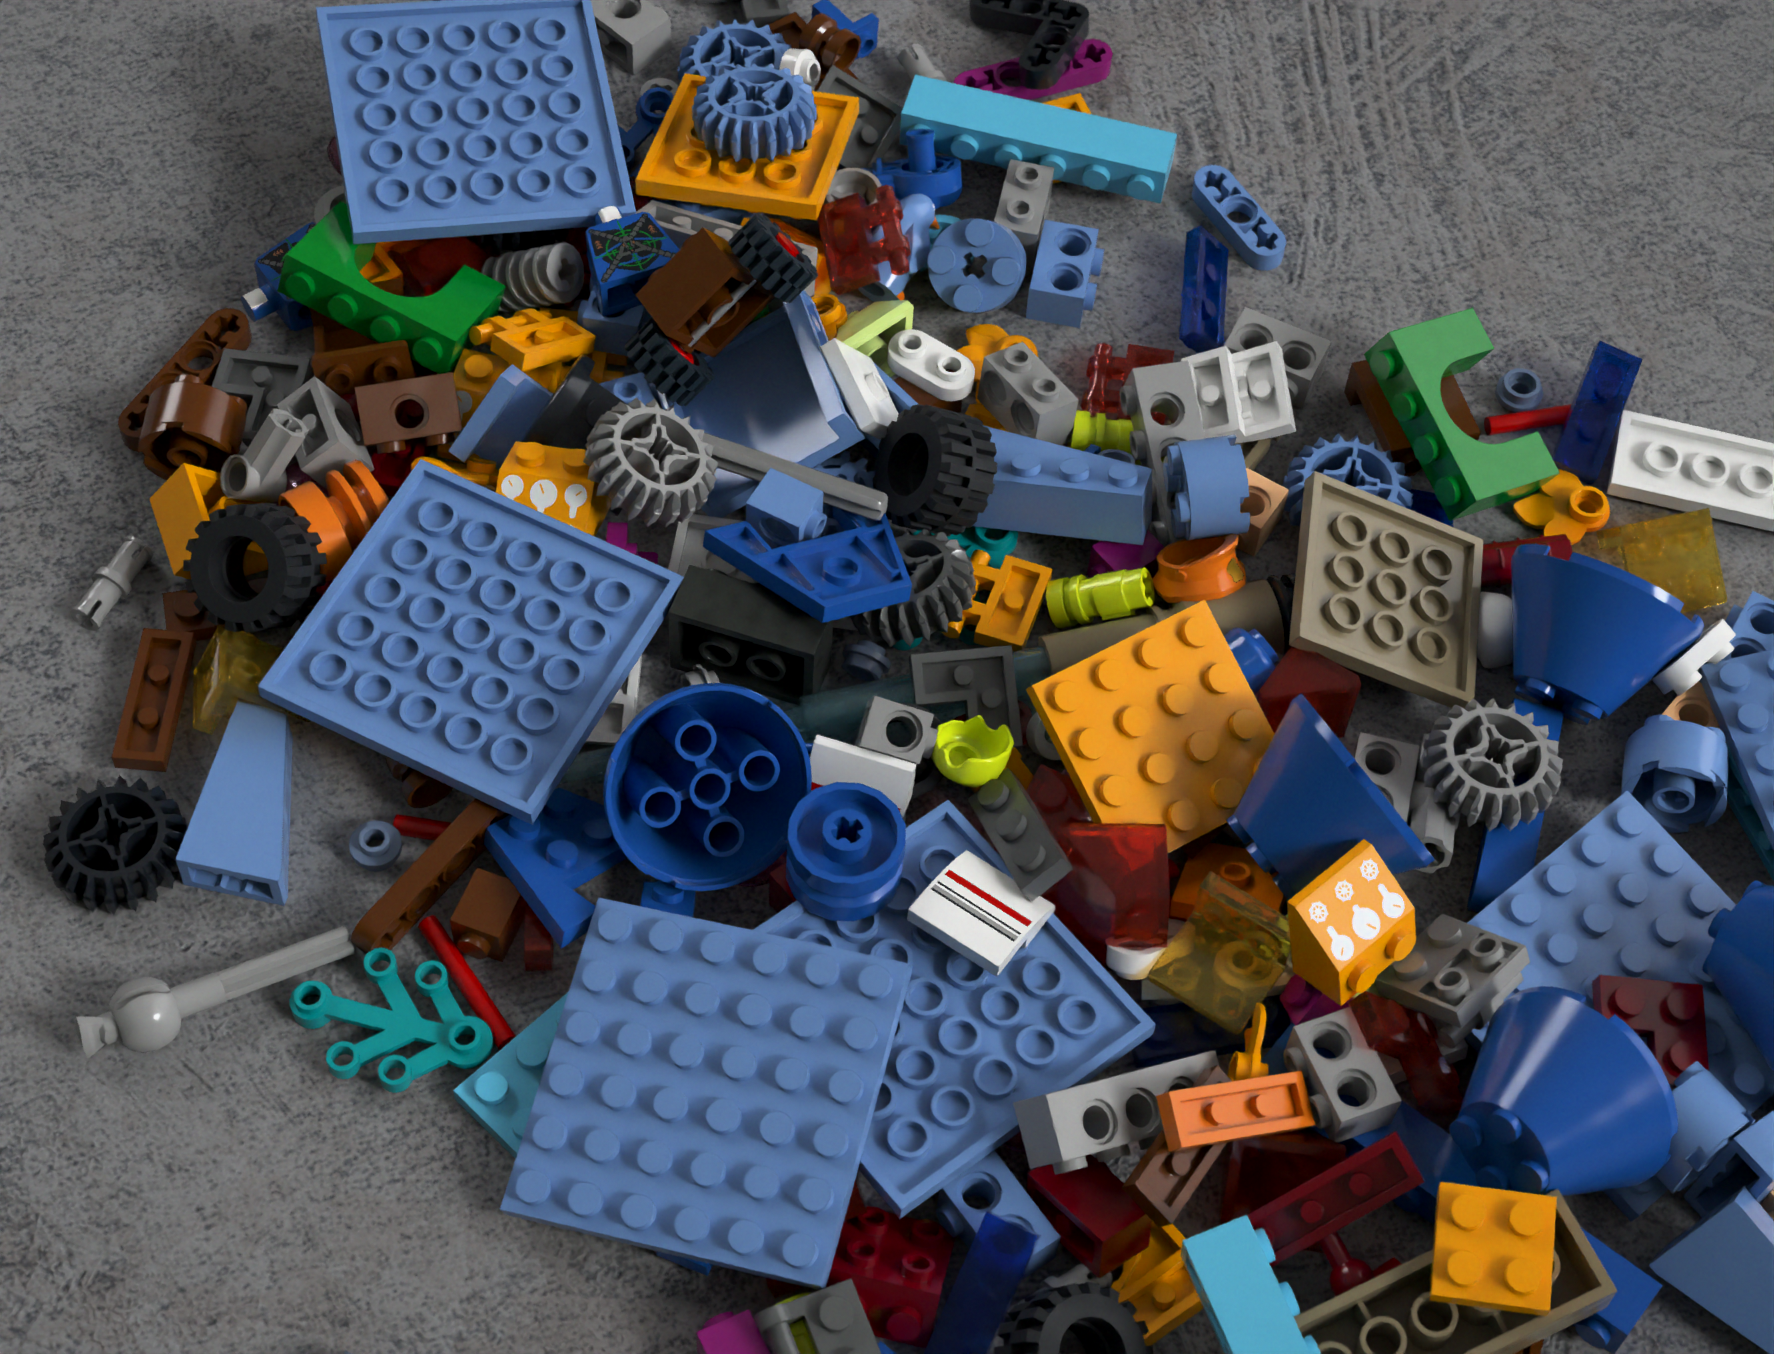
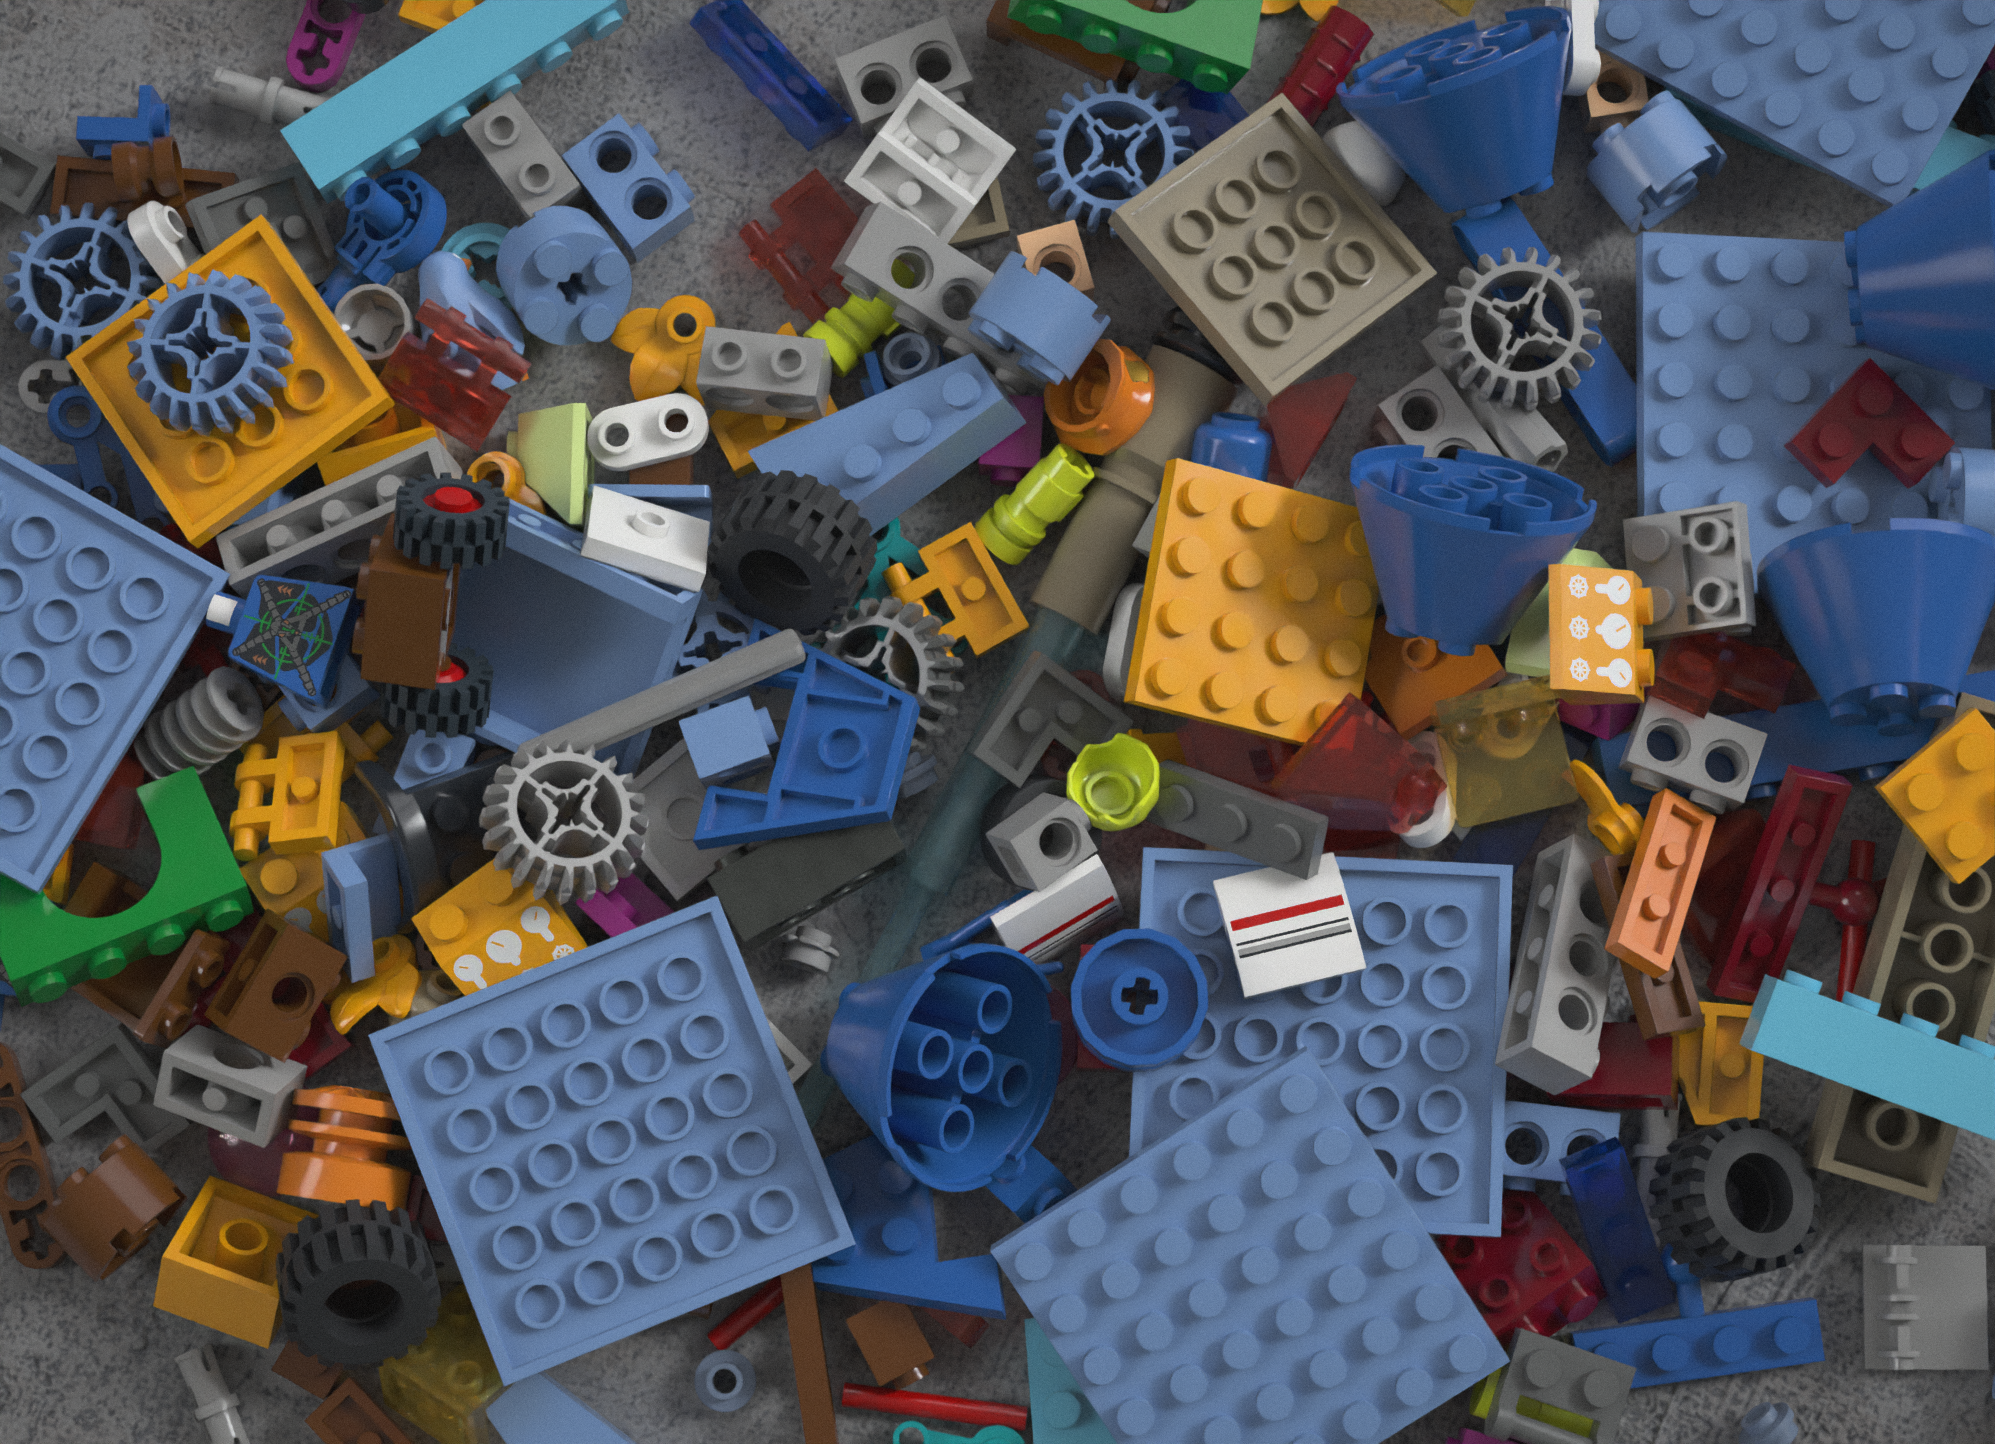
camera: 45 degrees left, 25 degrees up
(261, 470) = (219, 1171): light grey piece -> none

